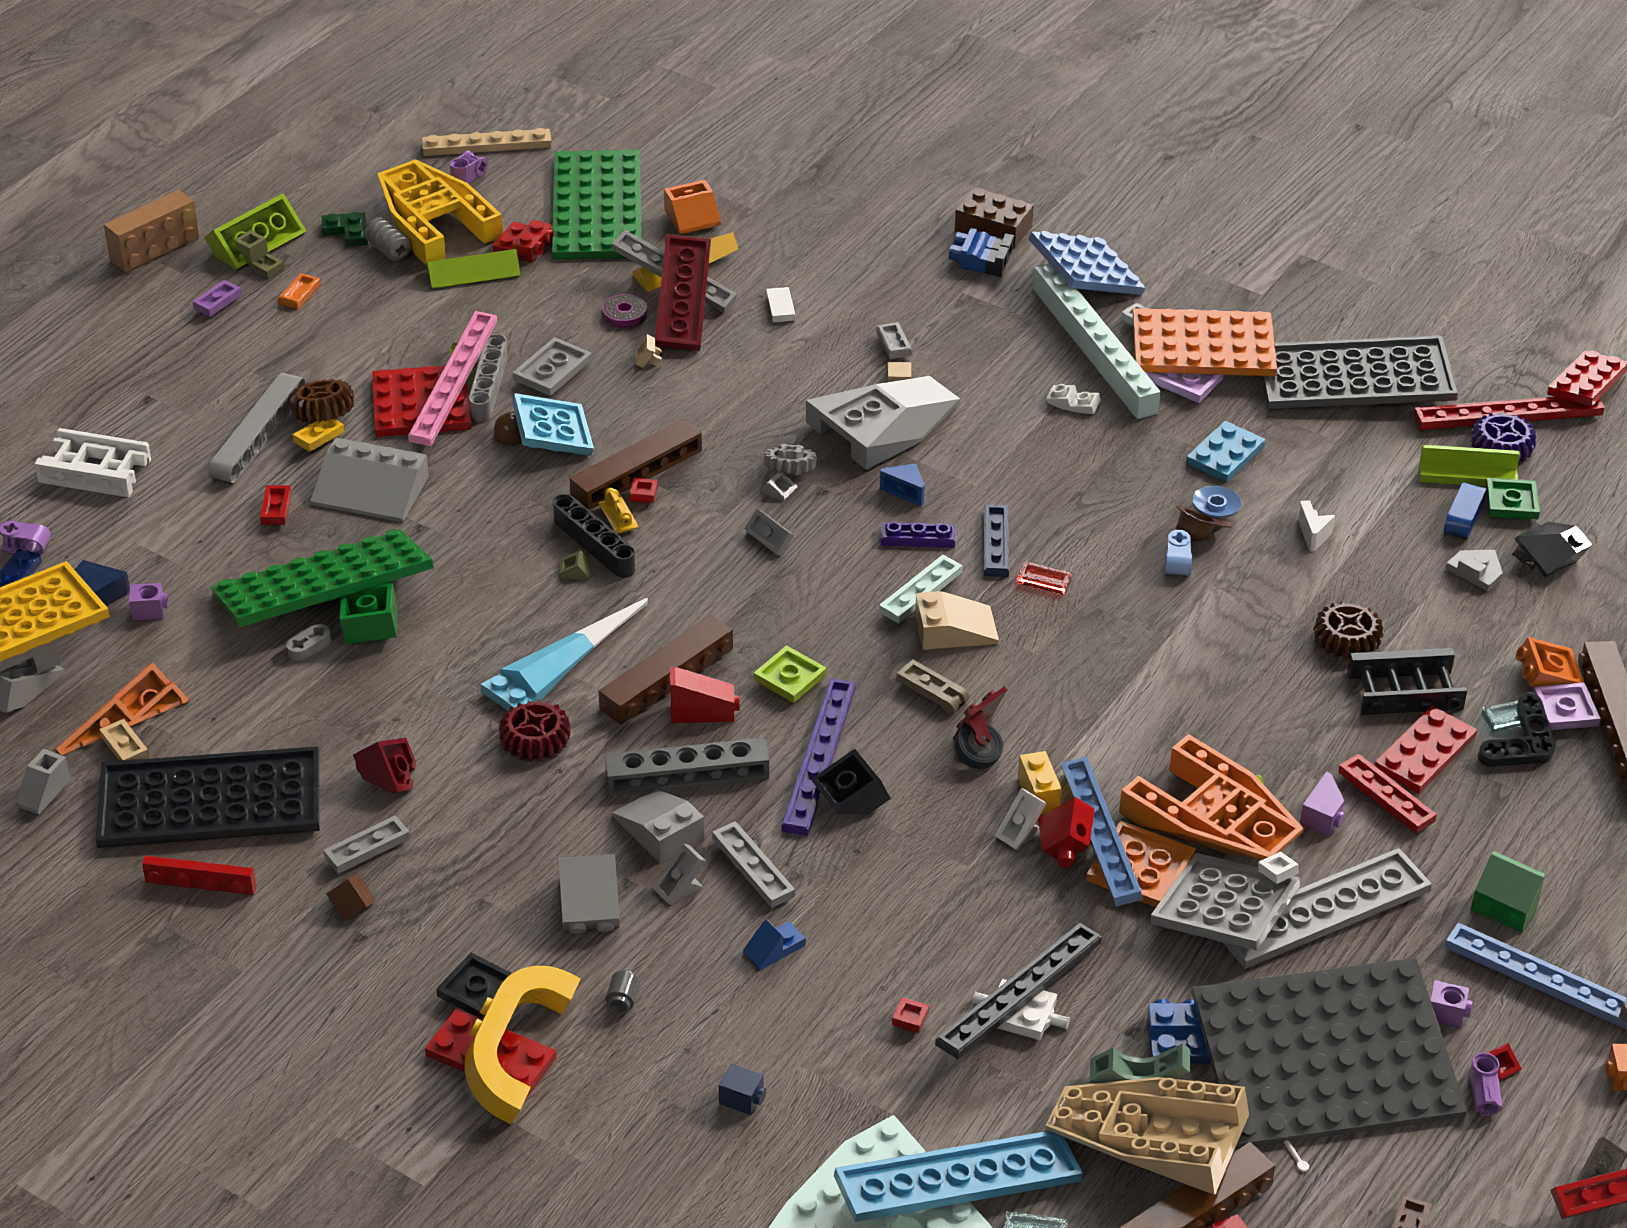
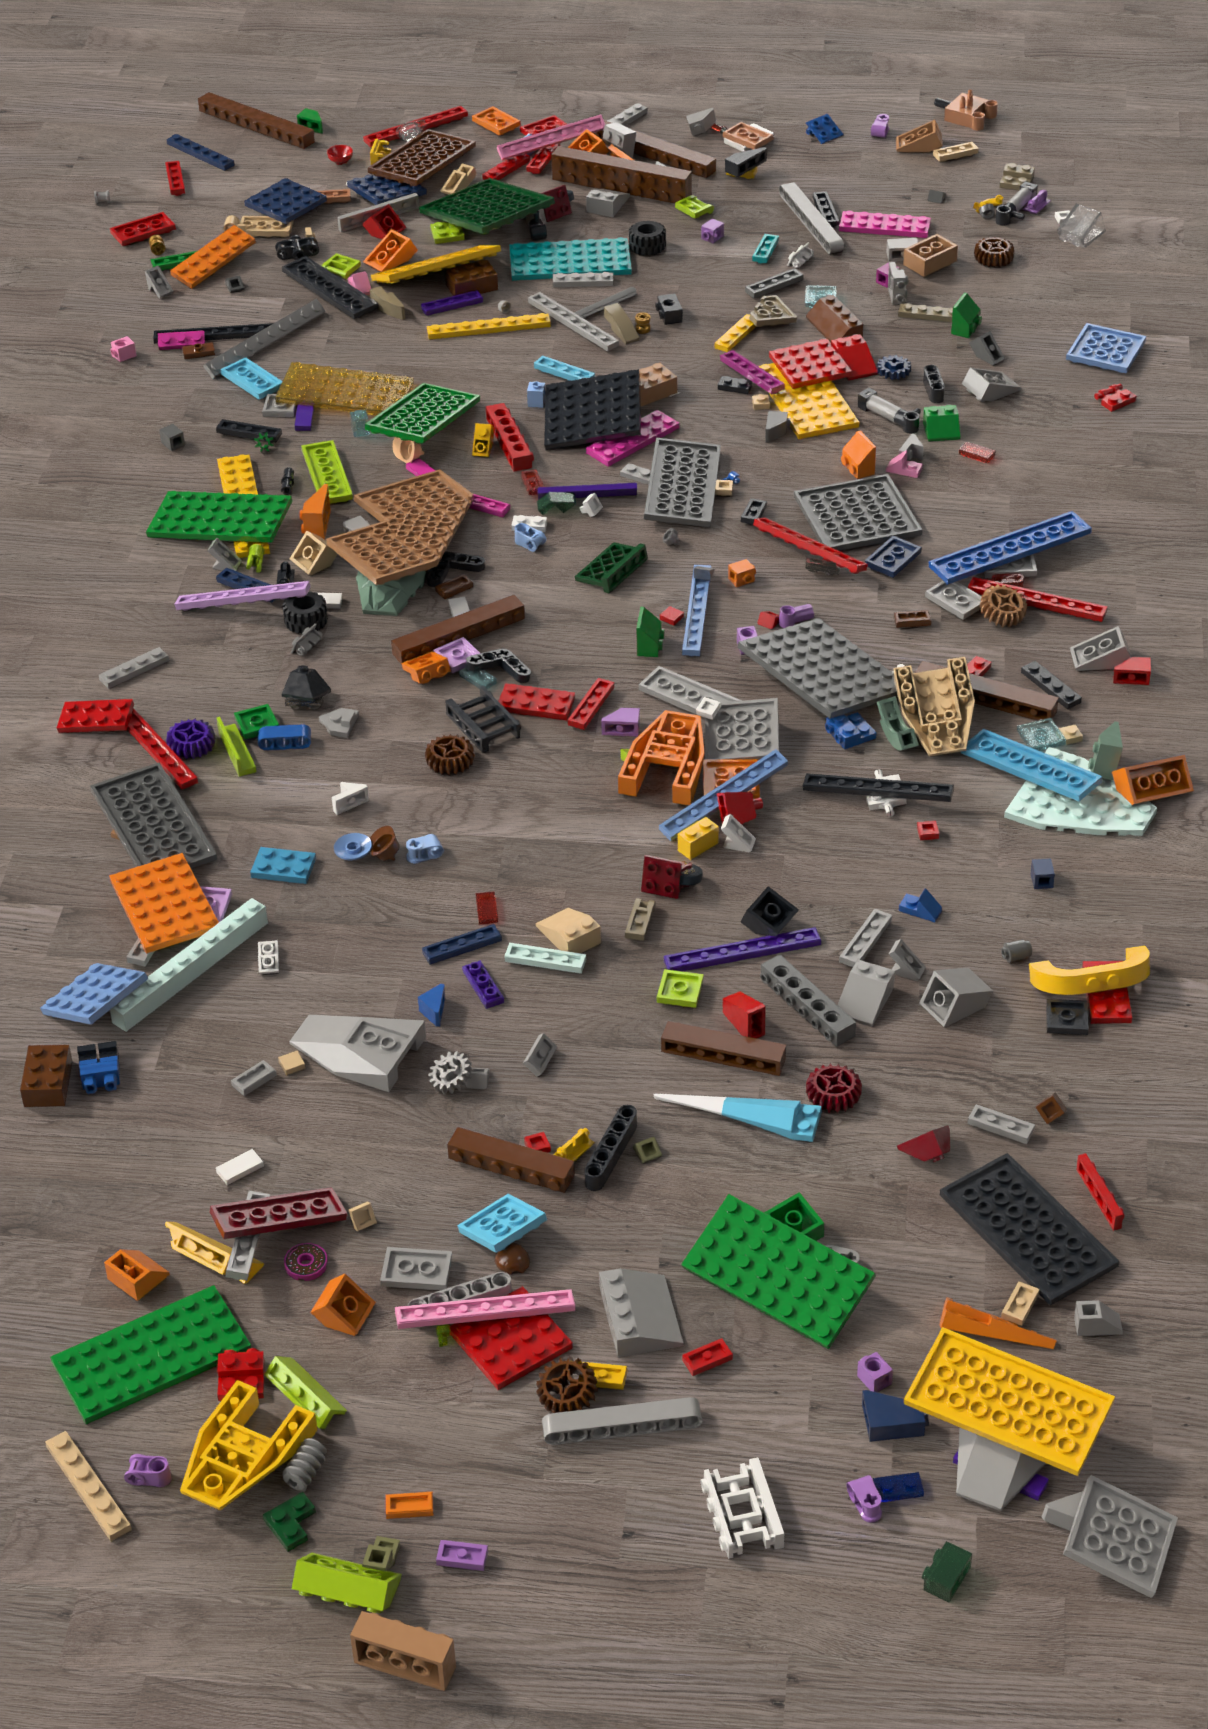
camera: 115 degrees left, 0 degrees up
(545, 310) = (343, 1306): none -> orange slope
(1560, 953) = (671, 615): none -> tile

